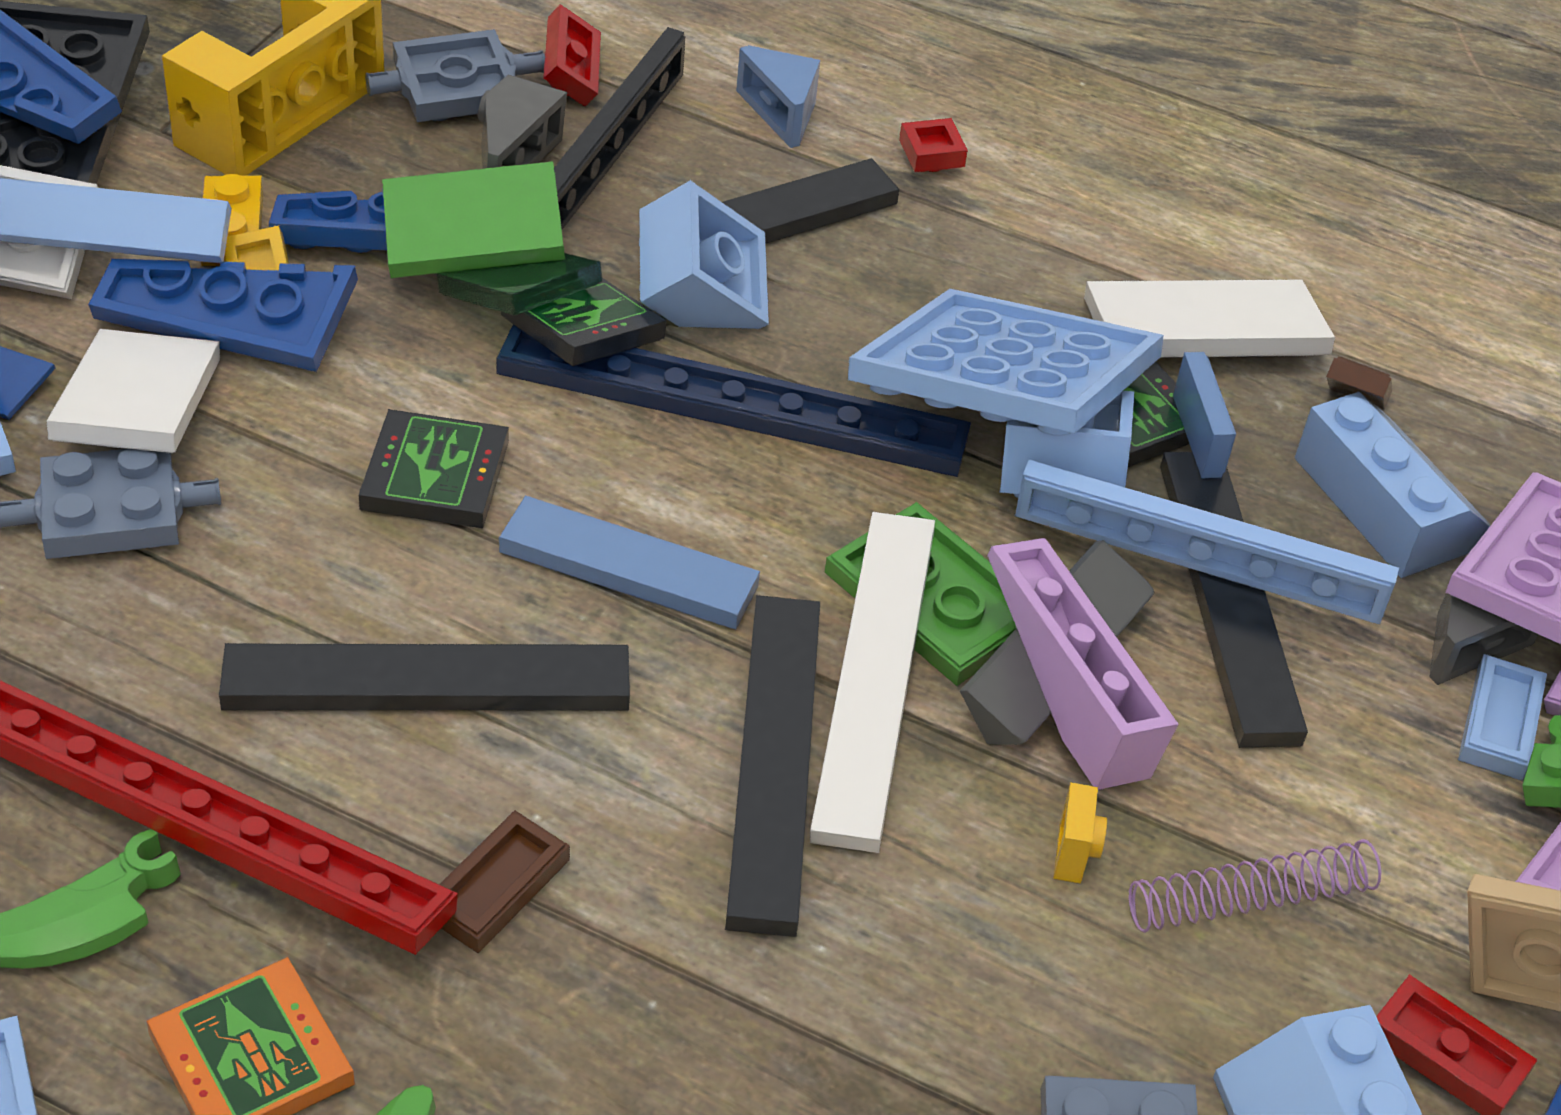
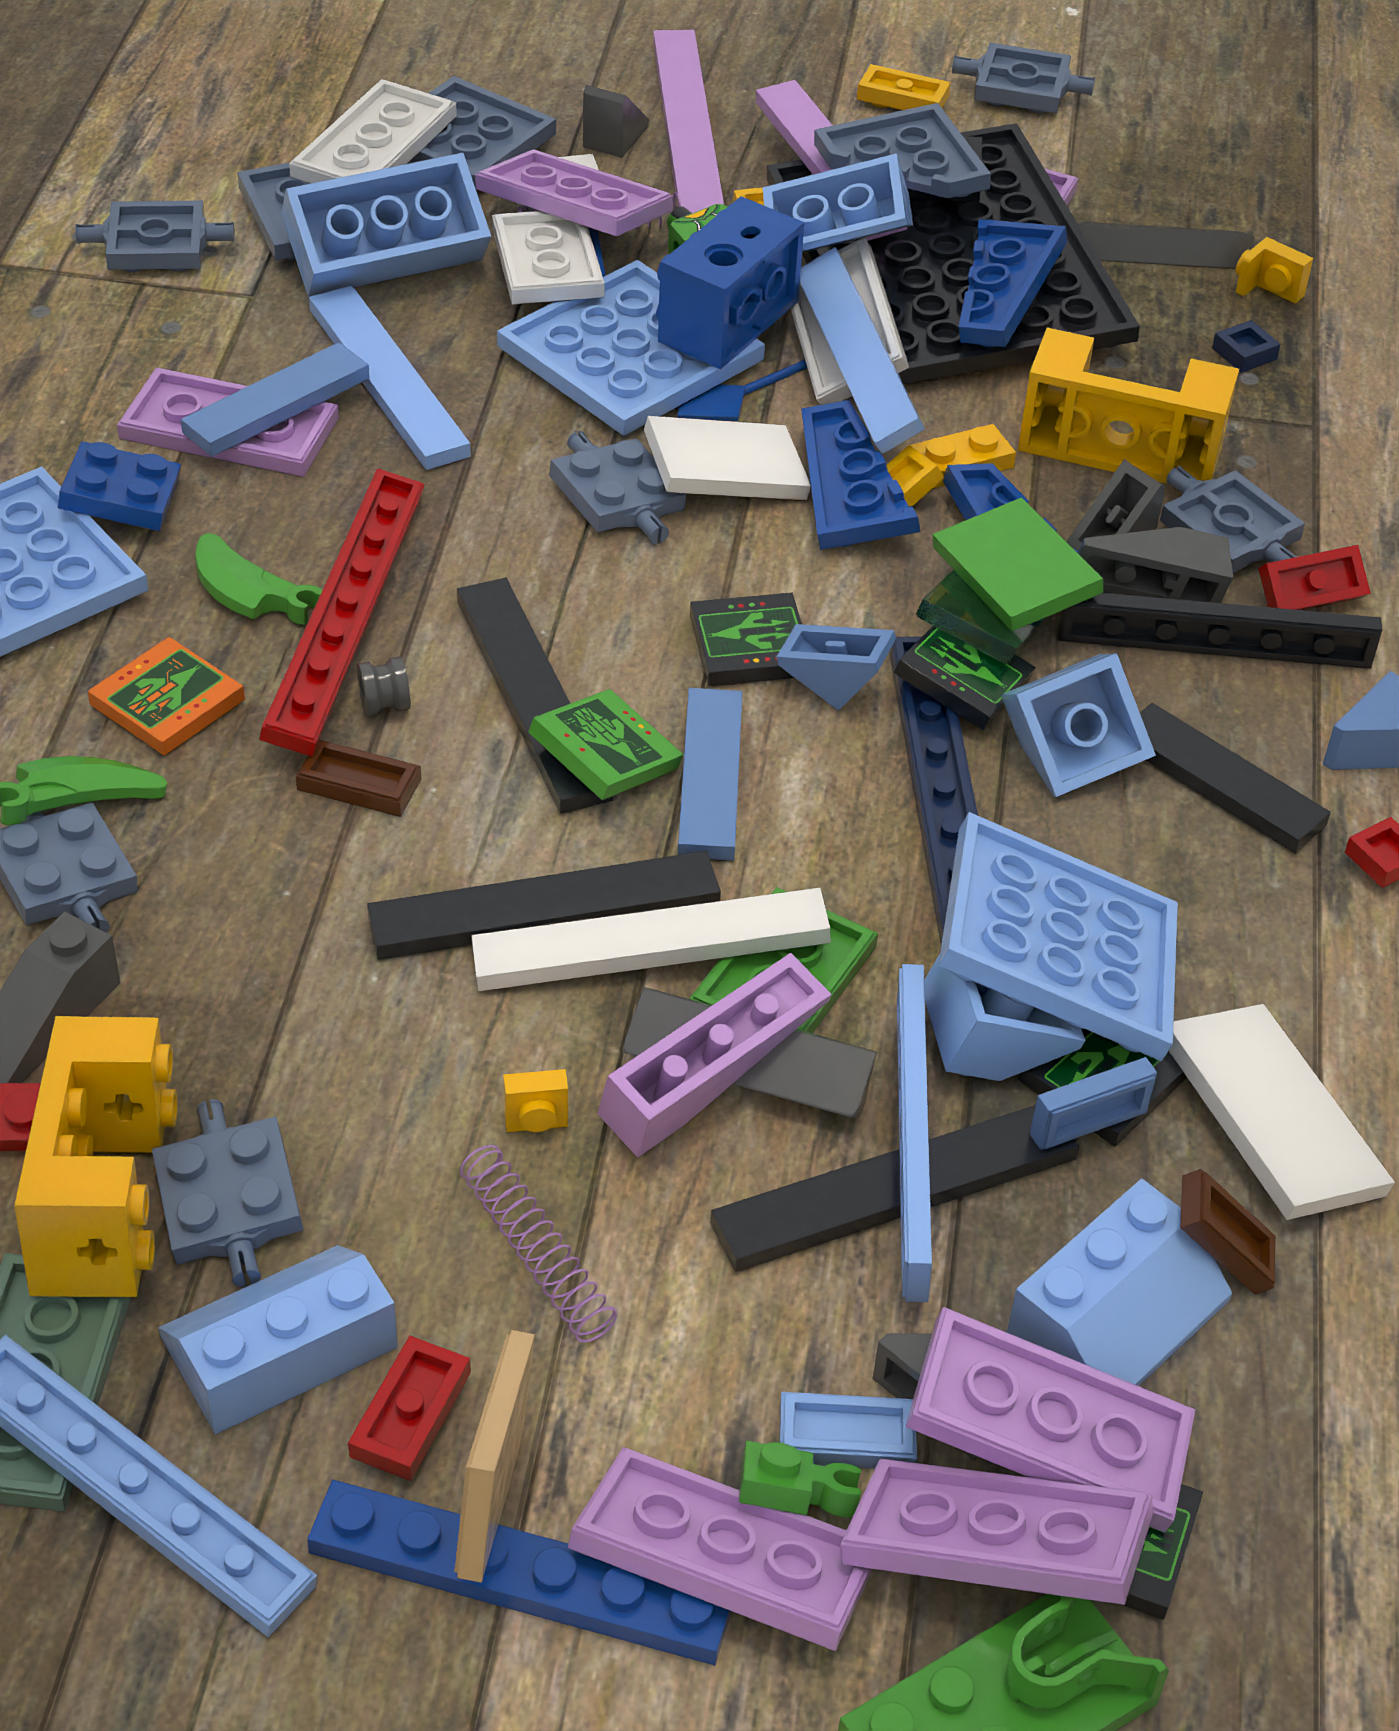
camera: 75 degrees right, 0 degrees up
(367, 807) = (383, 686): none -> dark grey wheel
(417, 129) = (1125, 505): none -> dark grey slope
(539, 395) = (834, 659): none -> medium blue slope
(568, 627) = (605, 744): none -> bright green tile

